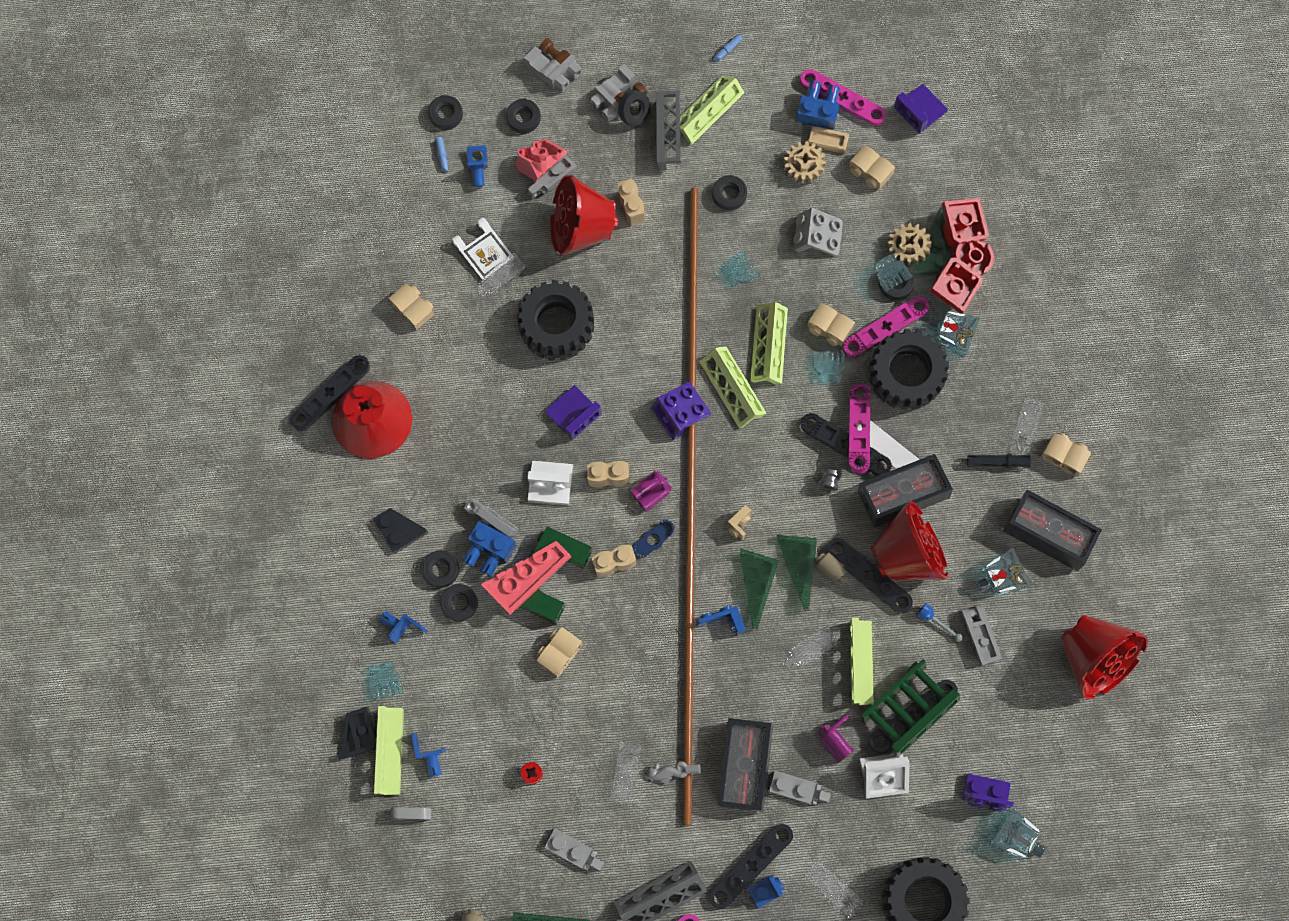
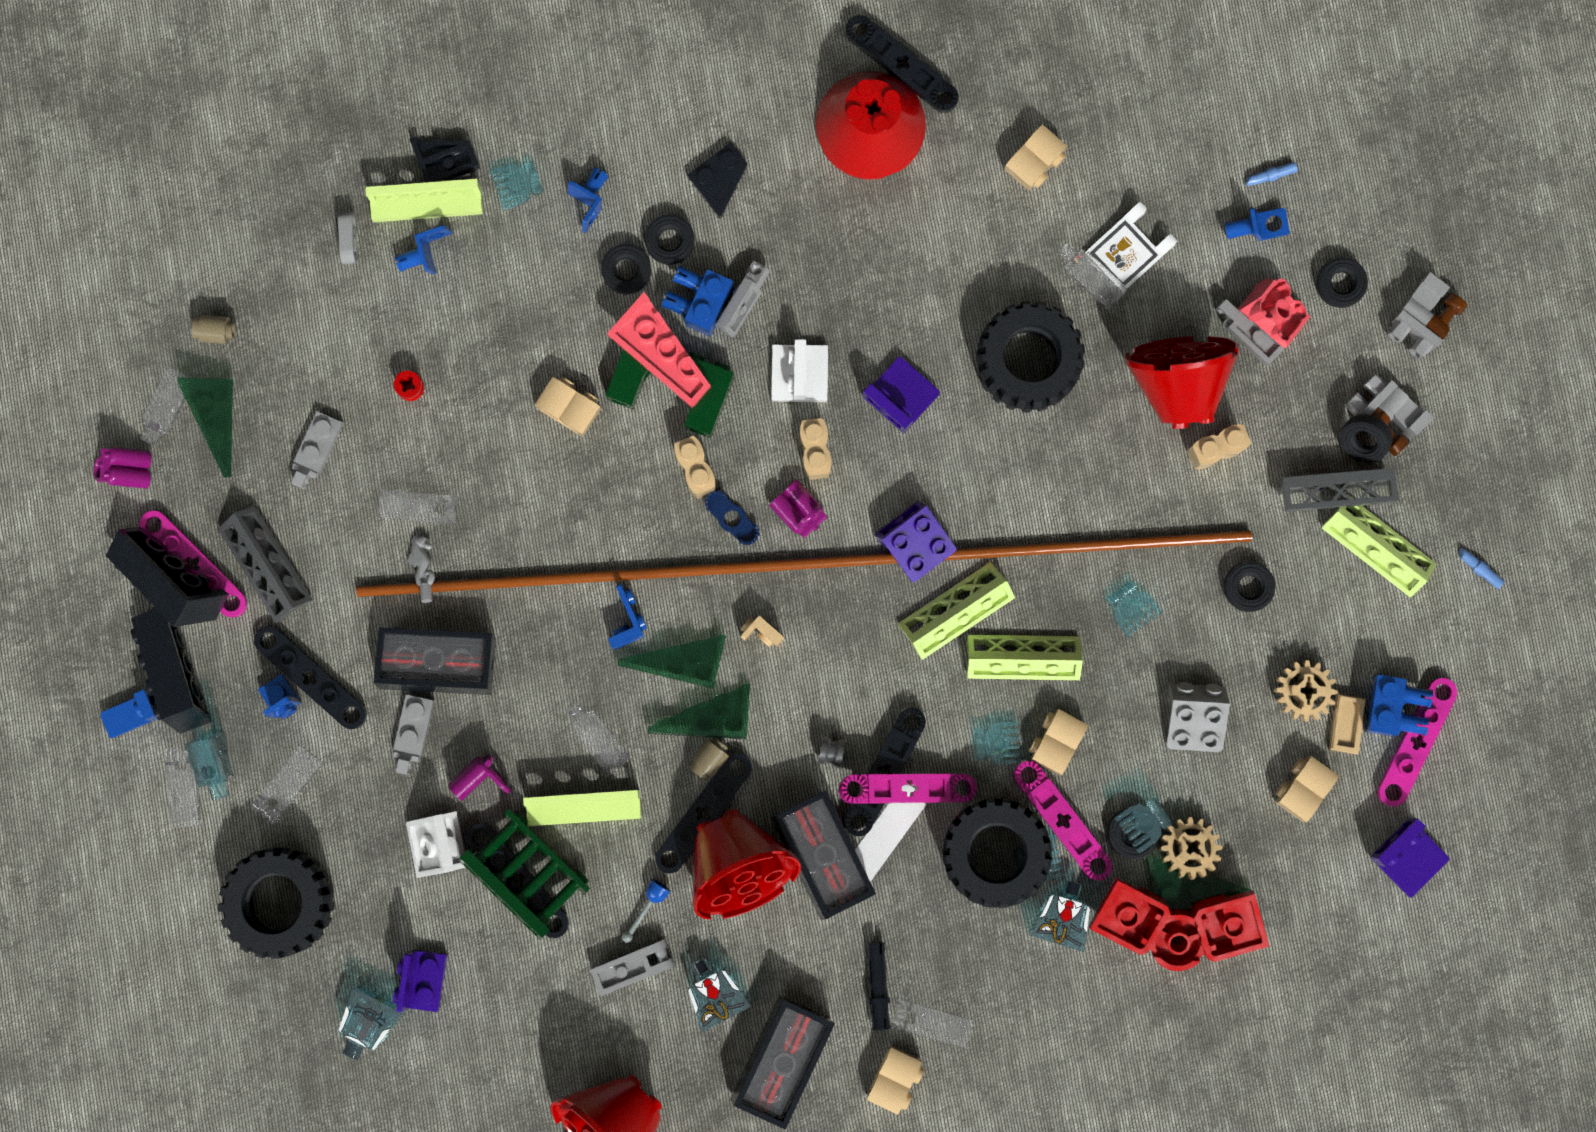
camera: 80 degrees right, 10 degrees up
(445, 101) = (1346, 157): black tyre -> none

